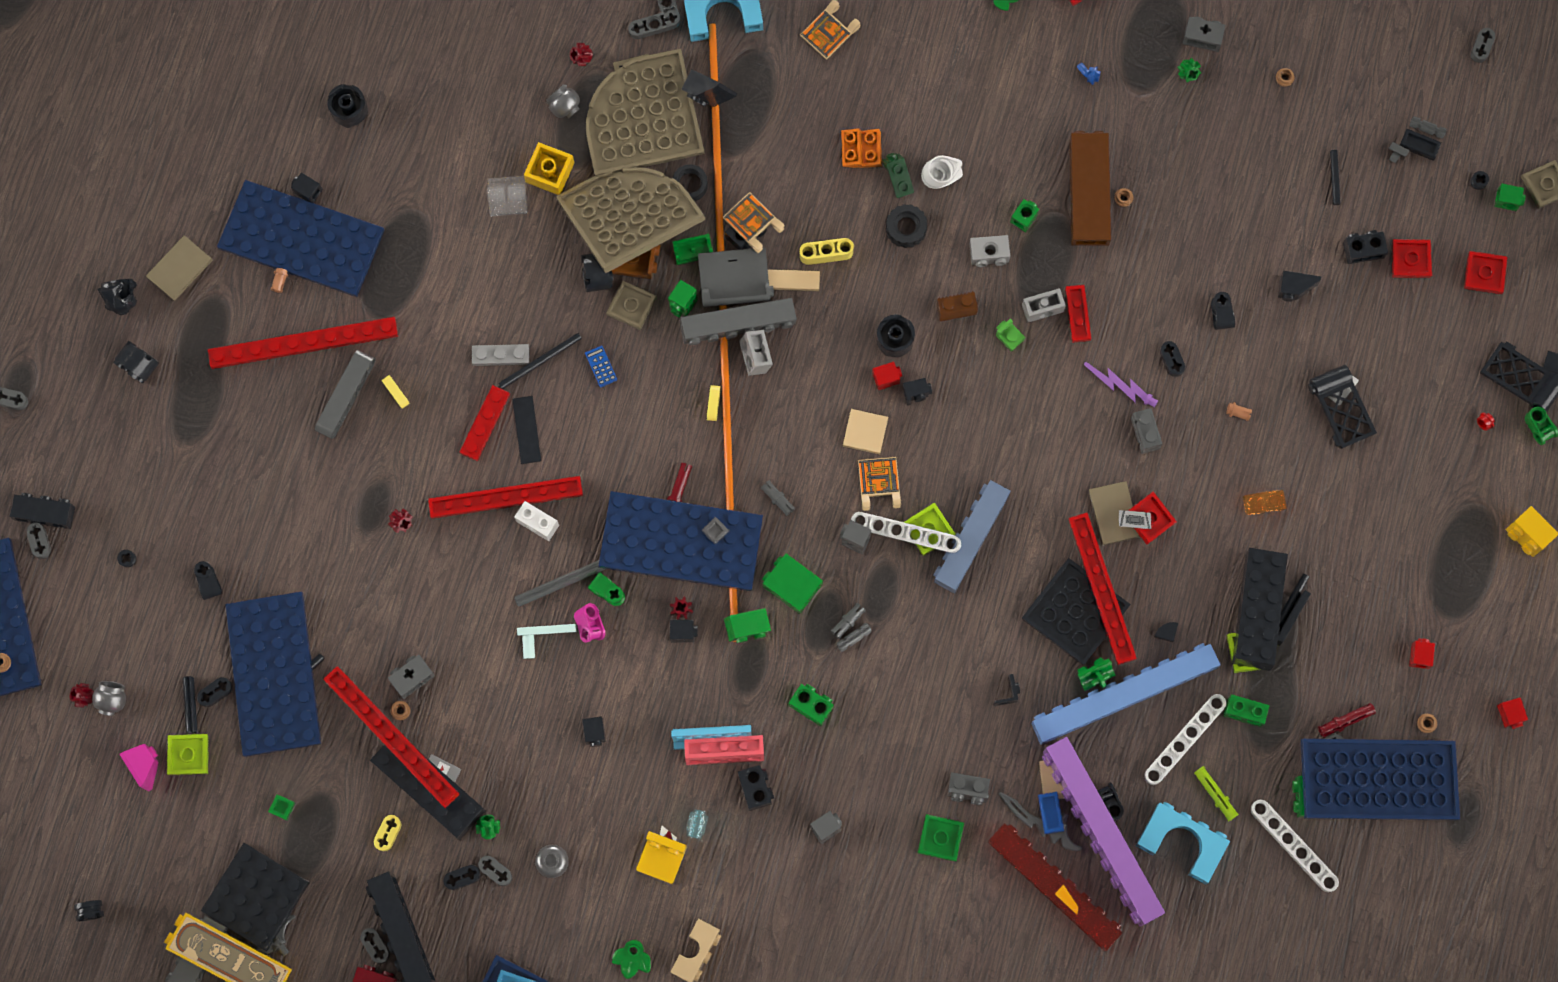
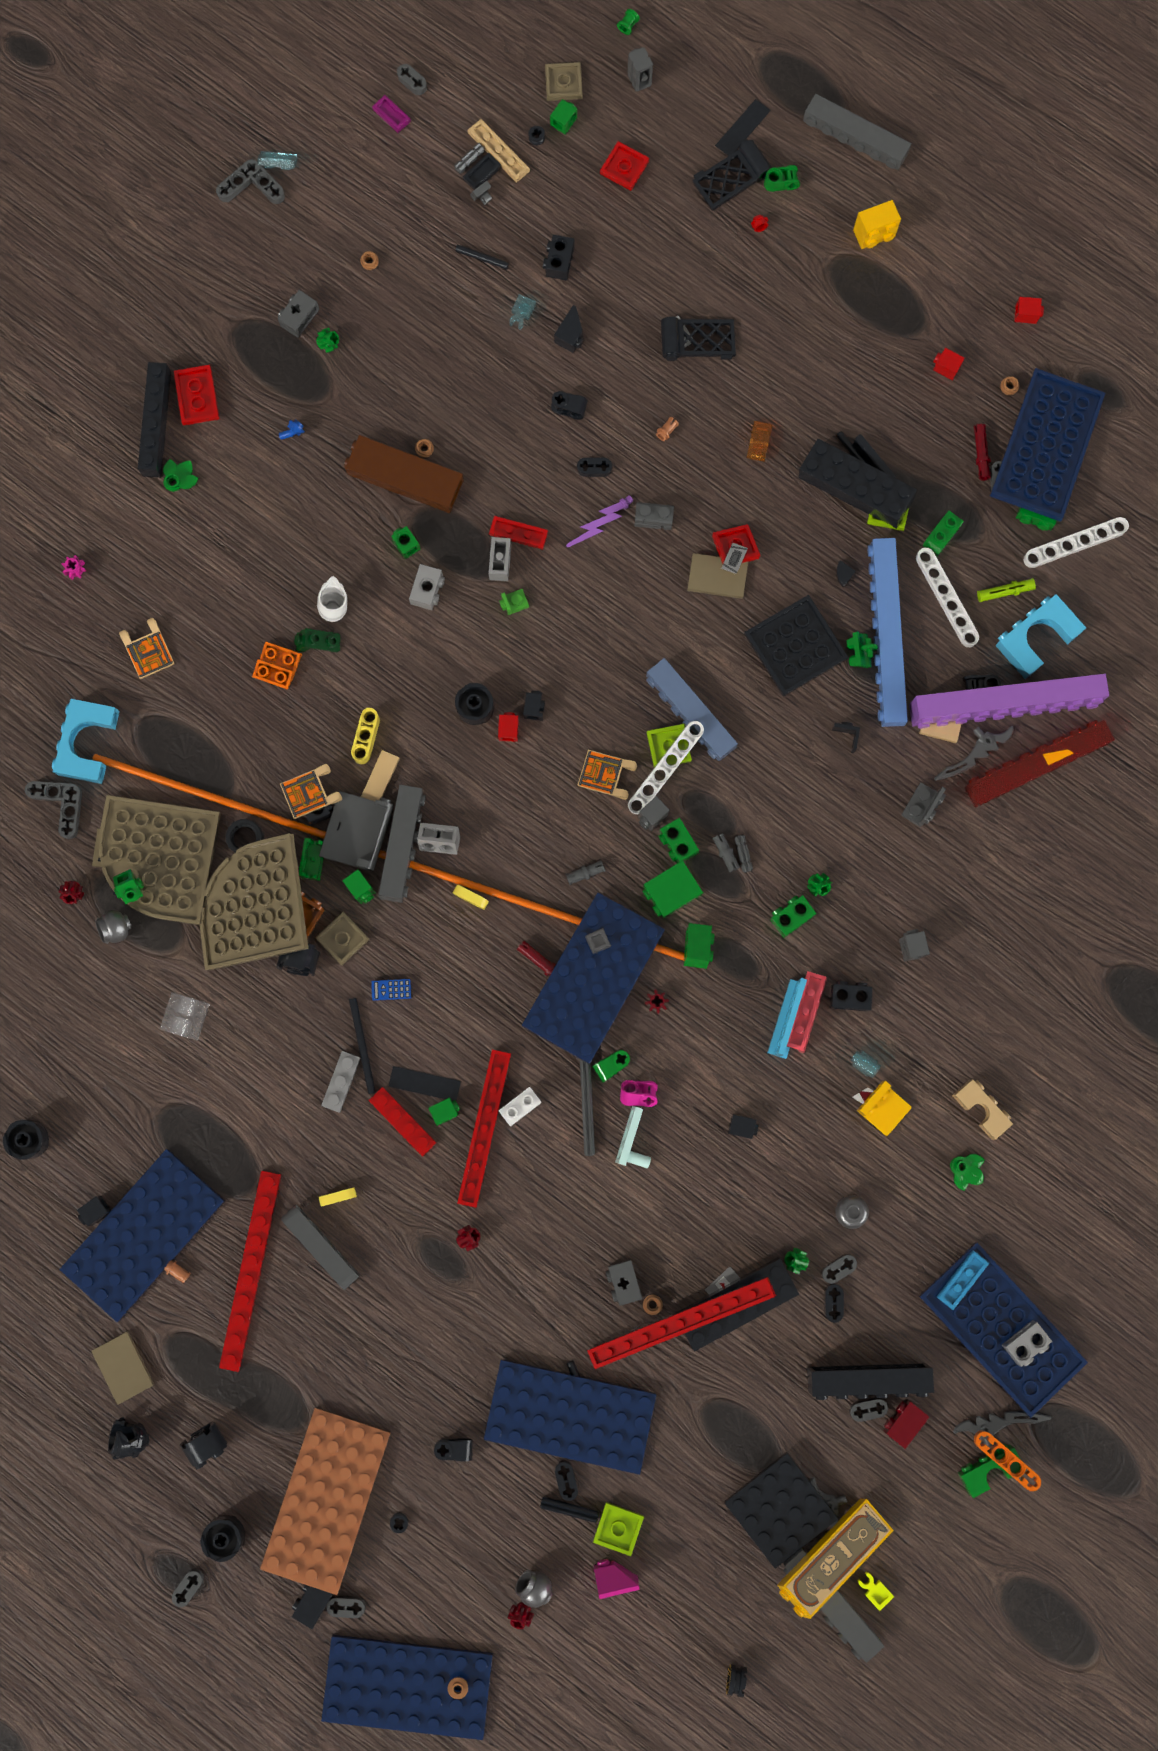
camera: 70 degrees left, 5 degrees up
(69, 417) = (218, 1549): none -> black brick
(124, 485) = (325, 1501): none -> nougat plate
(281, 807) = (704, 1453): green plate -> none
(383, 831) = (762, 1362): light yellow beam -> none
(507, 455) = (444, 1111): none -> green brick
(549, 168) = (175, 965): yellow brick -> none
(603, 99) = (128, 886): none -> green brick
(683, 631) = (679, 1008): black brick -> none
(706, 90) = (161, 785): black slope -> none
(845, 574) = (682, 839): none -> green brick
(851, 718) = (819, 884): none -> green gear
(865, 431) = (553, 768): tan tile -> none
(910, 212) = (370, 639): black tyre -> none
(940, 838) = (957, 847): green tile -> none
(957, 306) = (468, 637): reddish brown brick -> none
(1050, 813) = (972, 740): blue tile -> none
(1102, 589) = (786, 612): red plate -> none
(1299, 233) = (522, 309): none -> clear light blue plate
(1411, 258) = (585, 222): red plate -> none
(1440, 40) = (391, 113): none -> magenta tile
(1448, 151) = (499, 150): none -> tan tile

